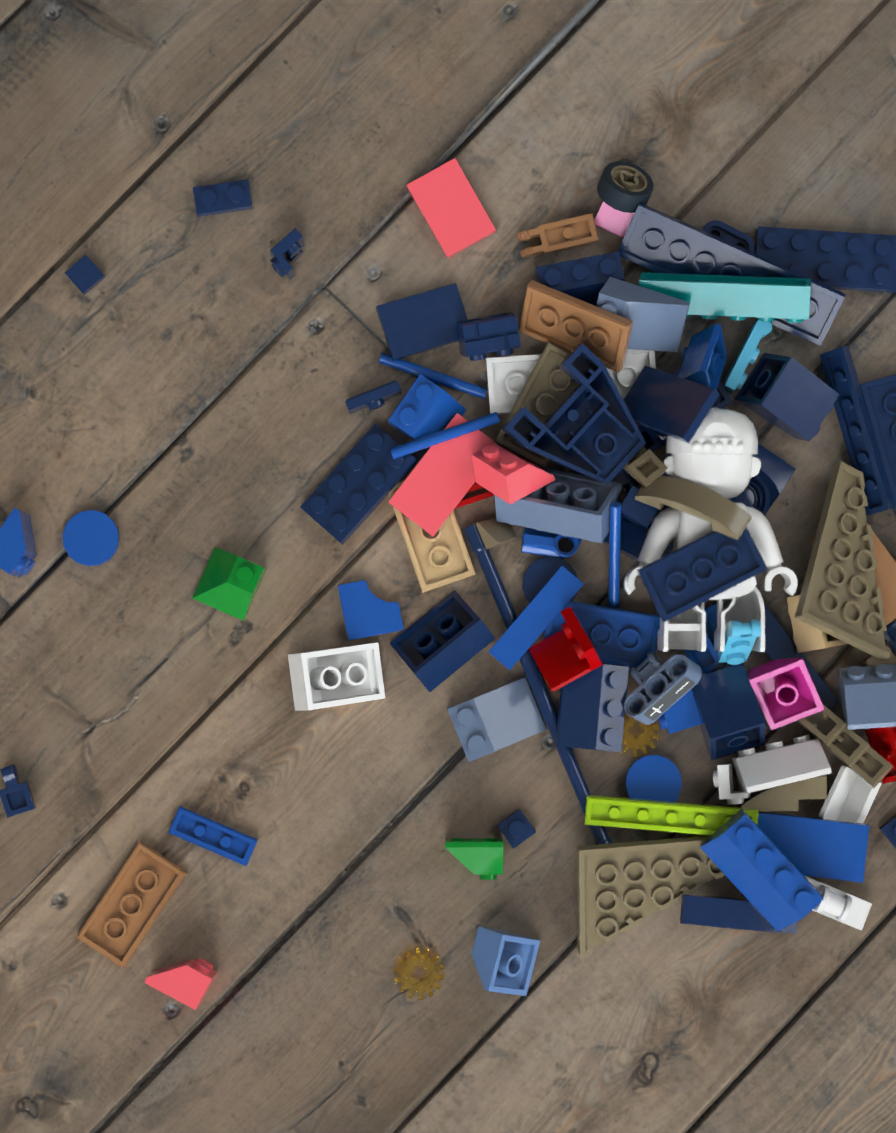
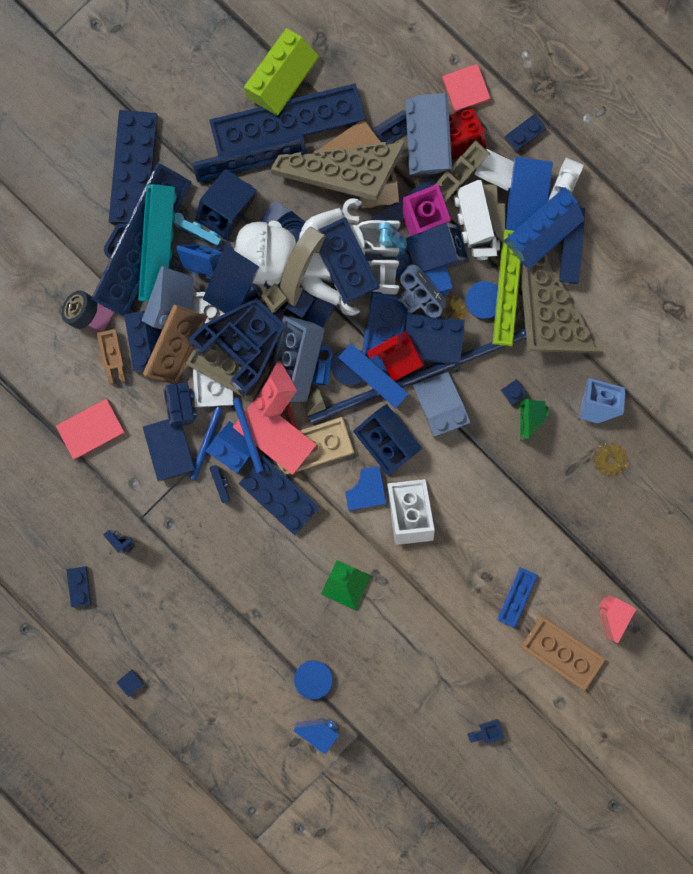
camera: 90 degrees left, 0 degrees up
(614, 554) = (331, 321): blue bar -> none

